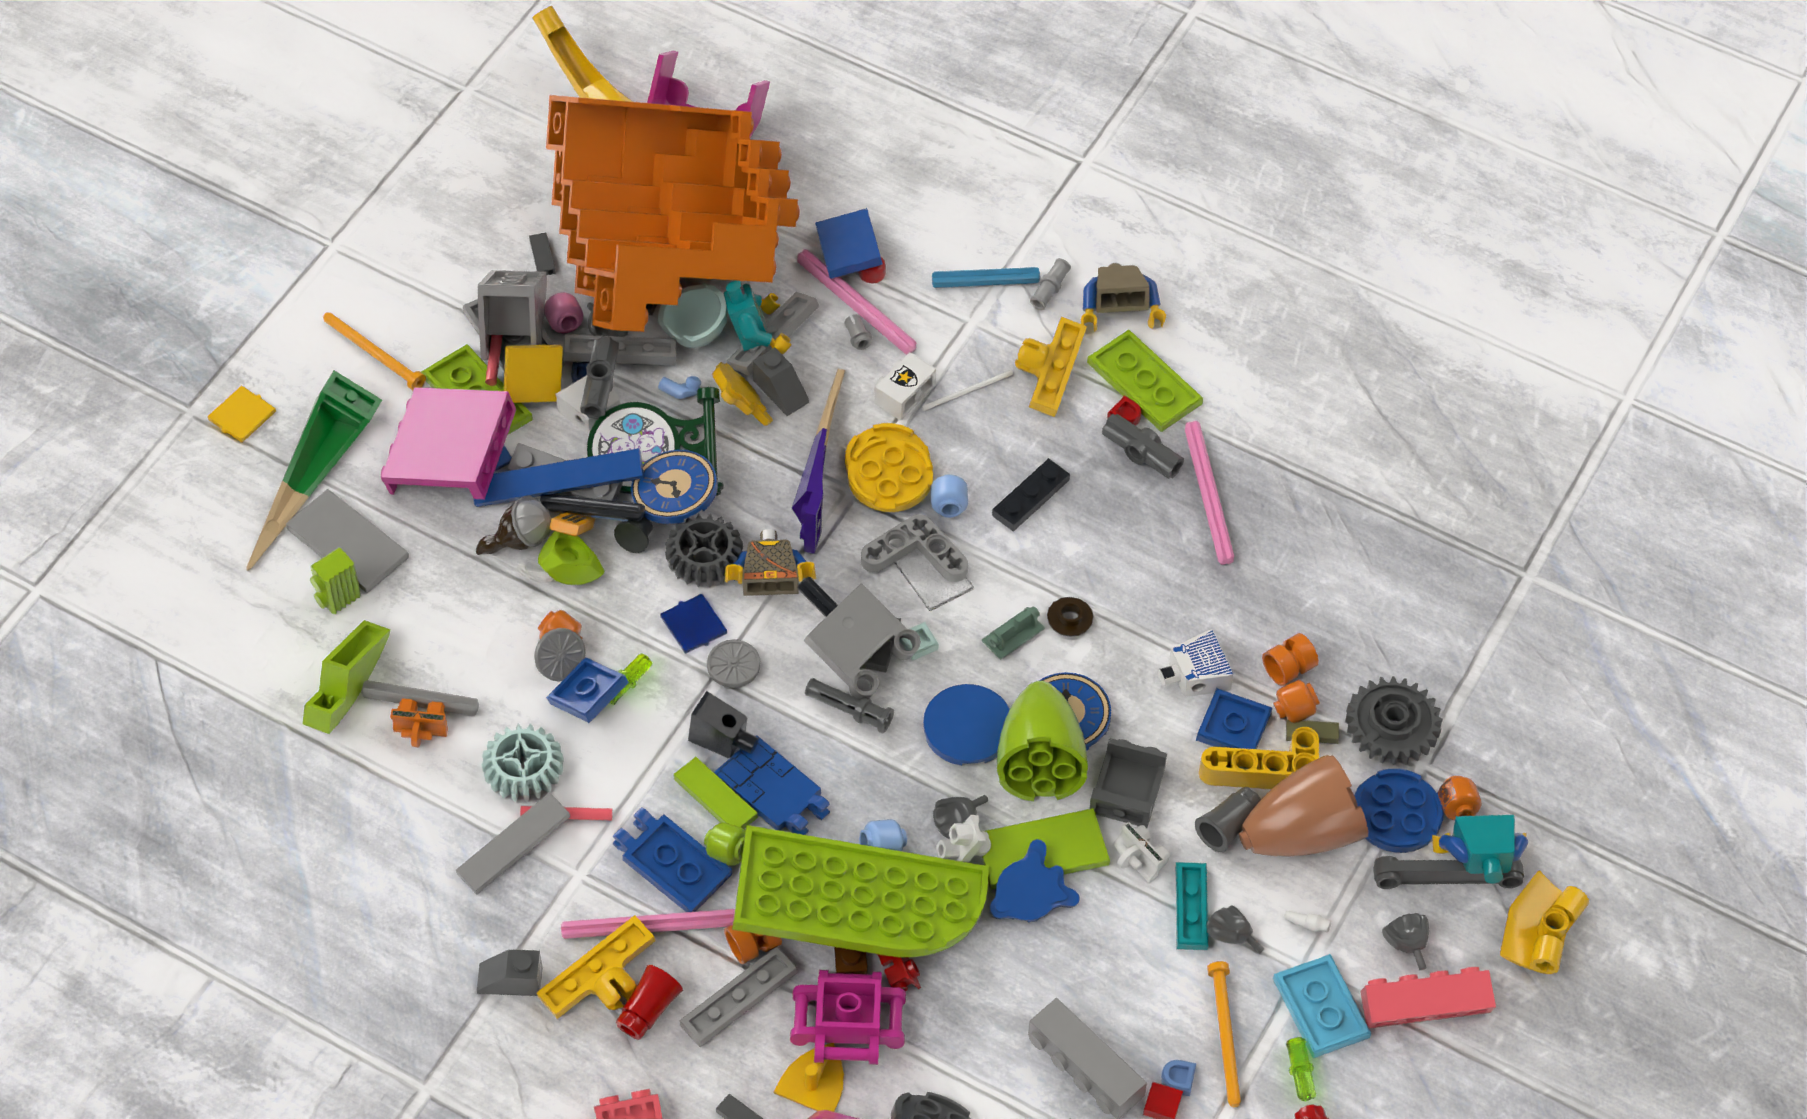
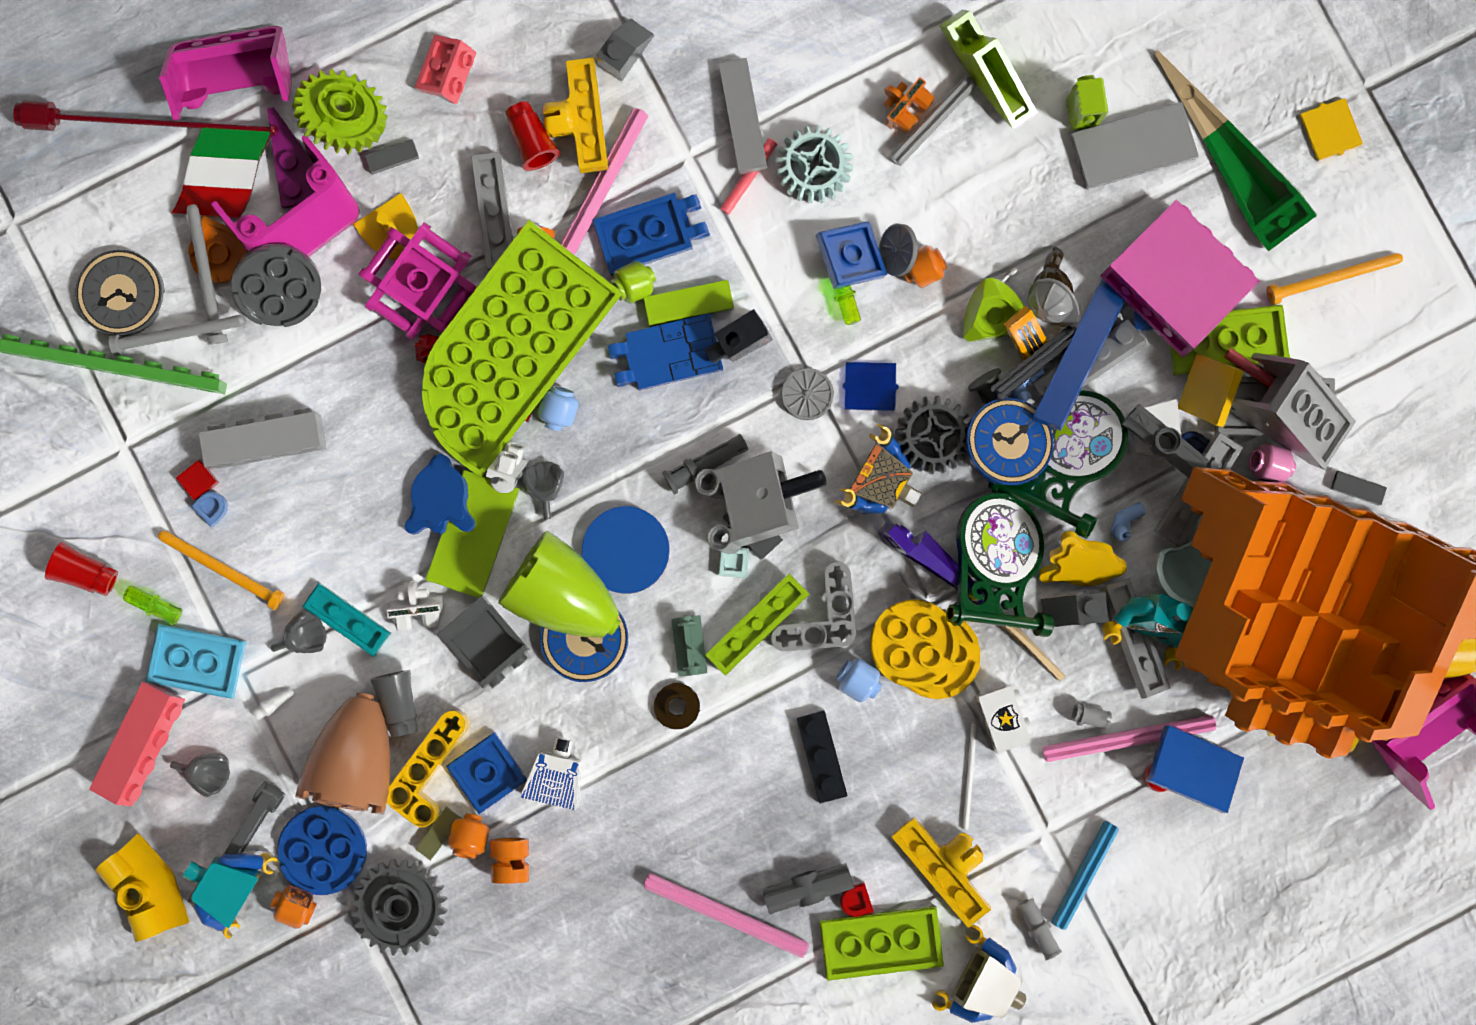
camera: 125 degrees right, 30 degrees up
(778, 448) = (1002, 550): none -> piece
(958, 589) = (757, 624): none -> lime plate

